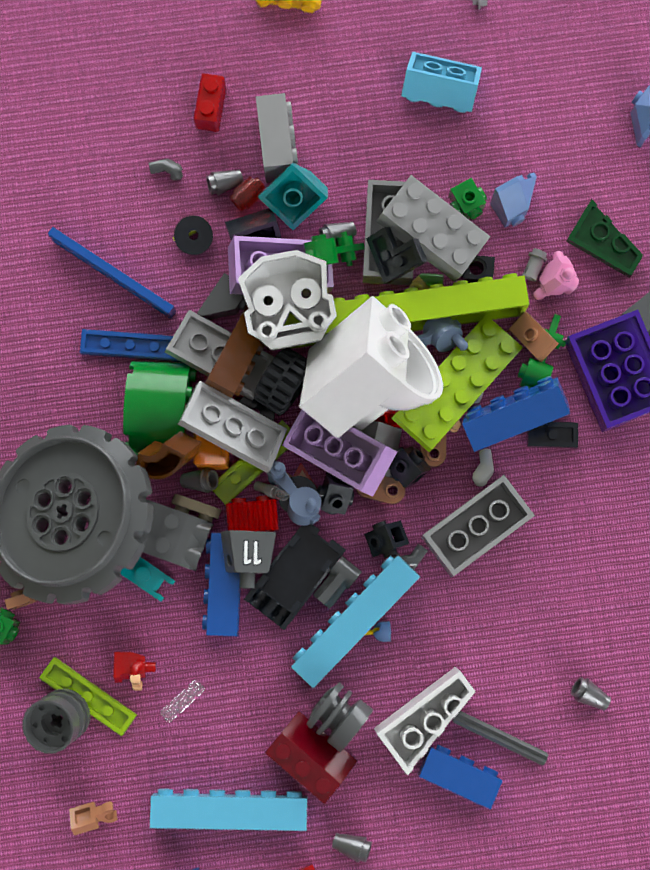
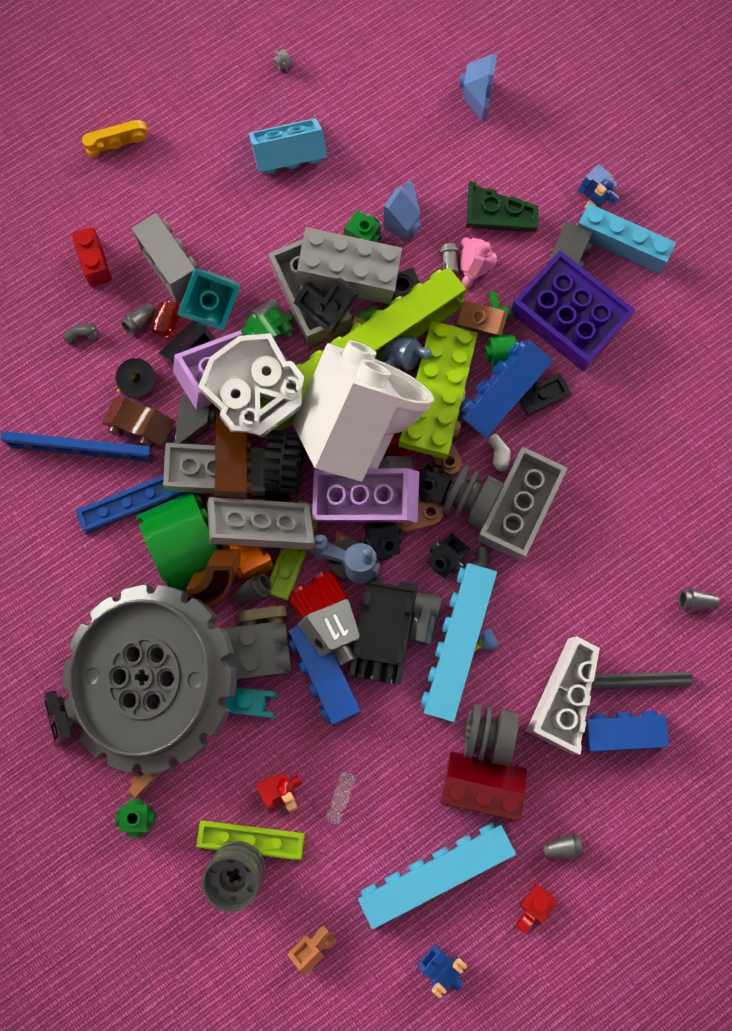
camera: 30 degrees left, 5 degrees down
(175, 277) = (138, 422): none -> reddish brown brick
(271, 491) = (323, 566): piece -> none
(435, 497) = (472, 496): none -> dark grey wheel

